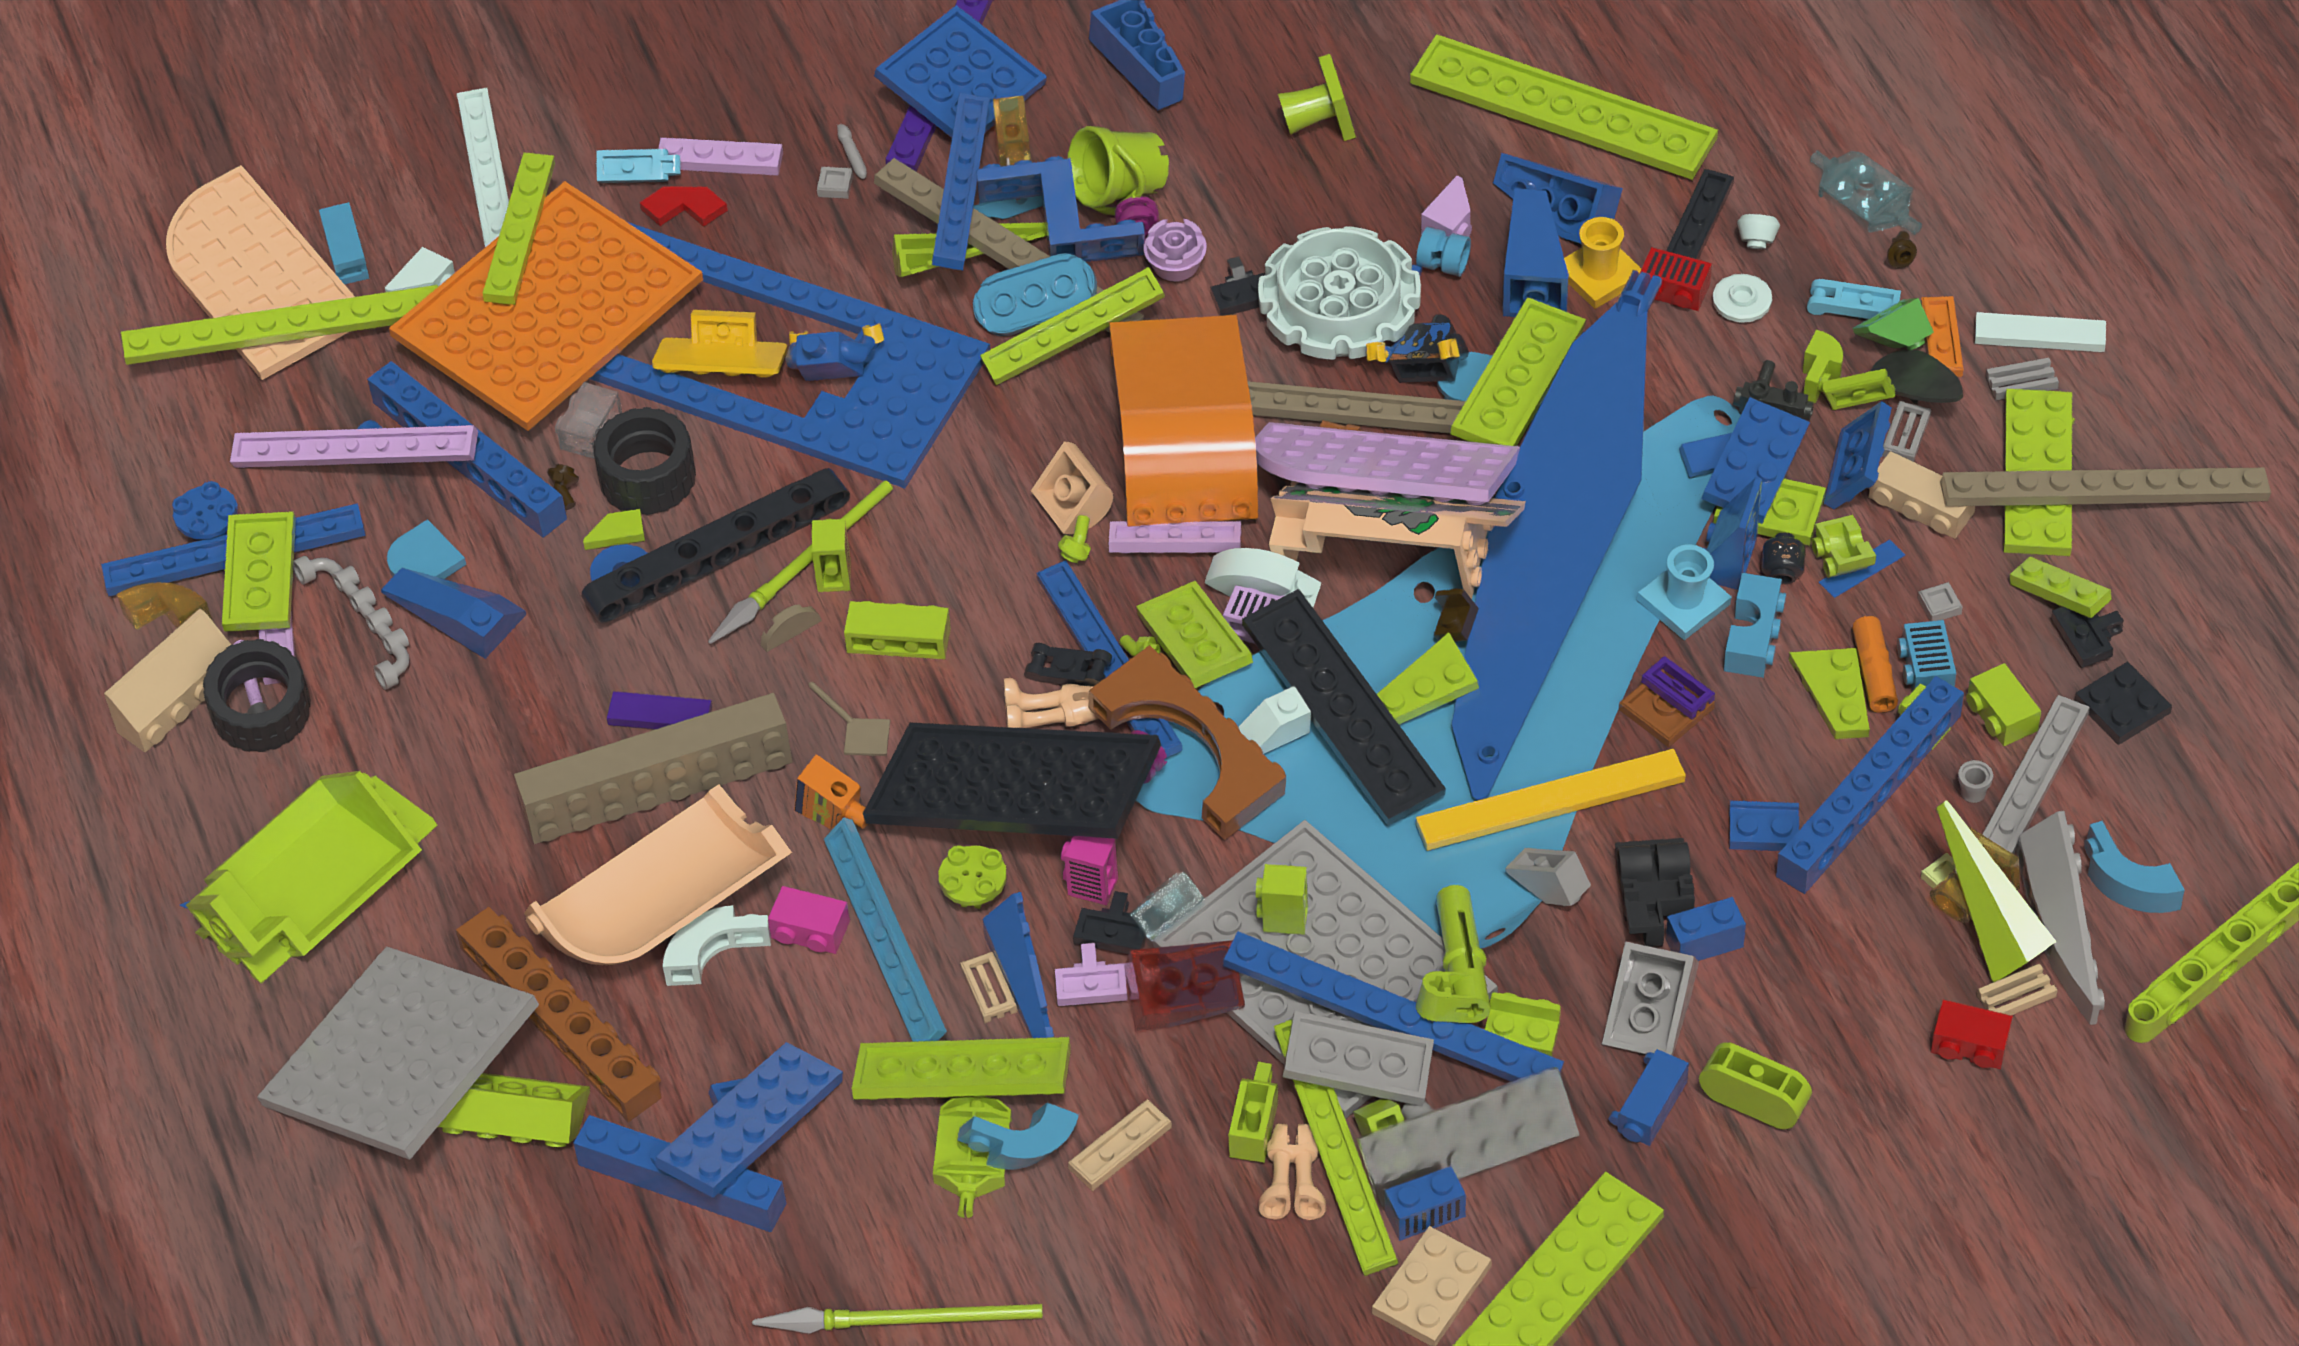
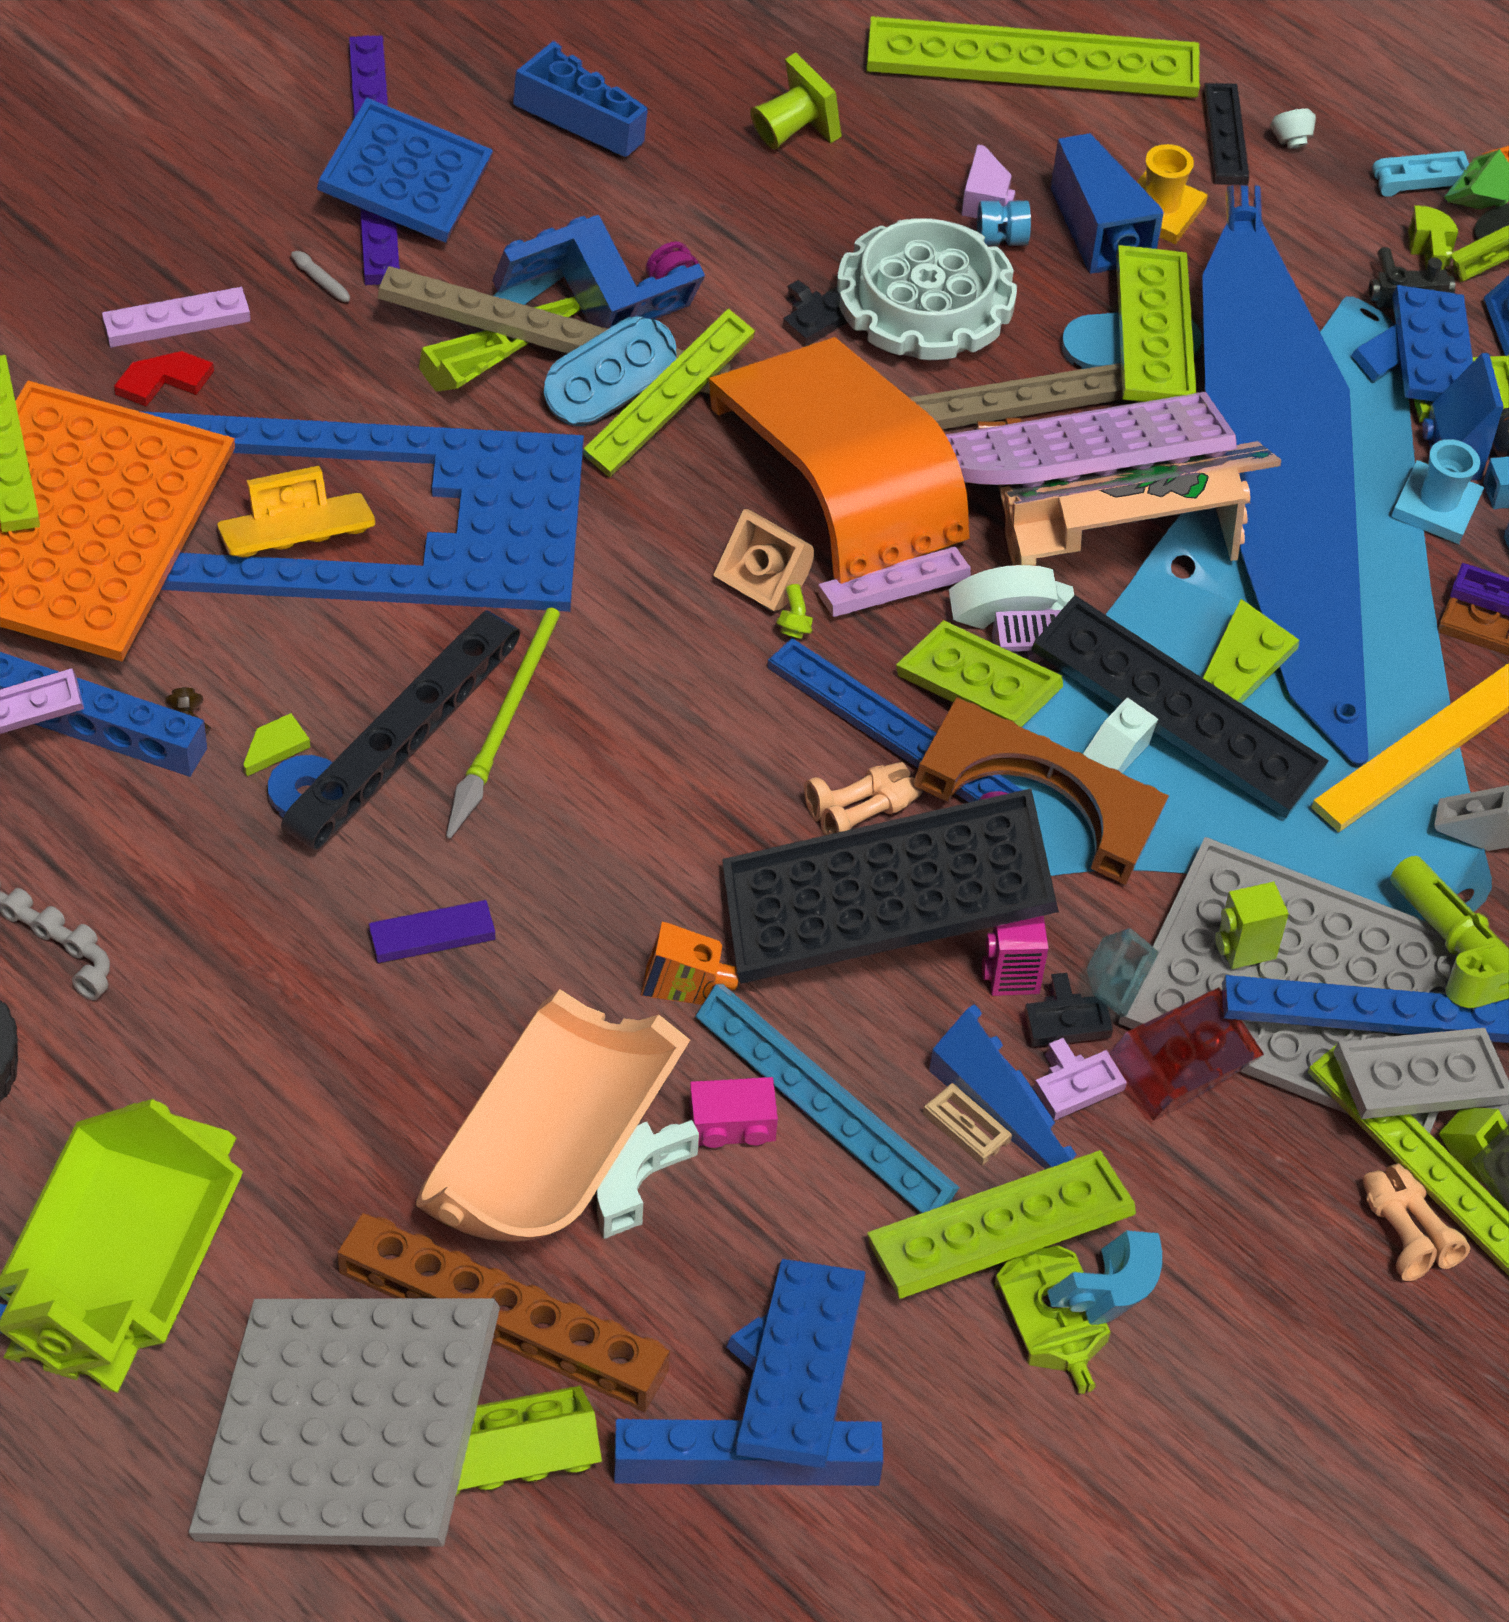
camera: 30 degrees left, 0 degrees up
(425, 552) = (63, 836): dark azure tile -> none
(461, 611) = (148, 886): blue wedge -> none
(585, 416) = (183, 631): clear brick -> none
(636, 165) = (91, 348): medium azure hinge -> none
(637, 433) = (270, 624): black tyre -> none
(653, 768) = (469, 996): dark tan brick -> none
(788, 625) = (530, 790): dark tan tile -> none
(810, 1319) = (989, 1571): lime piece -> none
(831, 353) = (422, 488): blue torso -> none
(831, 555) = (543, 701): lime brick -> none
(835, 182) = (319, 312): light grey tile -> none
(862, 735) = (672, 889): dark tan piece -> none
(897, 630) = (654, 763): lime brick -> none
(960, 182) = (479, 272): blue plate -> none
(972, 861) = (887, 989): lime plate -> none
(1011, 141) = (491, 212): clear yellow torso -> none
(1067, 665) = (861, 748): black plate -> none
(1115, 166) = (636, 212): lime piece -> none
(1119, 1145) = (1207, 1253): tan tile -> none
(1134, 647) = (932, 710): lime plate -> none
(1175, 249) = (733, 285): lavender cone -> none
(1254, 1115) = (1341, 1171): lime hinge -> none
(1424, 352) = (1047, 324): torso -> none
(1457, 614) = (1234, 579): dark brown bracket -> none
(1570, 195) = (1039, 132): blue wedge -> none
(1683, 278) = (1221, 177): red brick -> none
(1742, 298) = (1314, 196): light aqua wheel -> none
(1881, 205) = (1392, 74): clear light blue plate -> none
(1902, 251) = (1438, 112): dark brown plate -> none

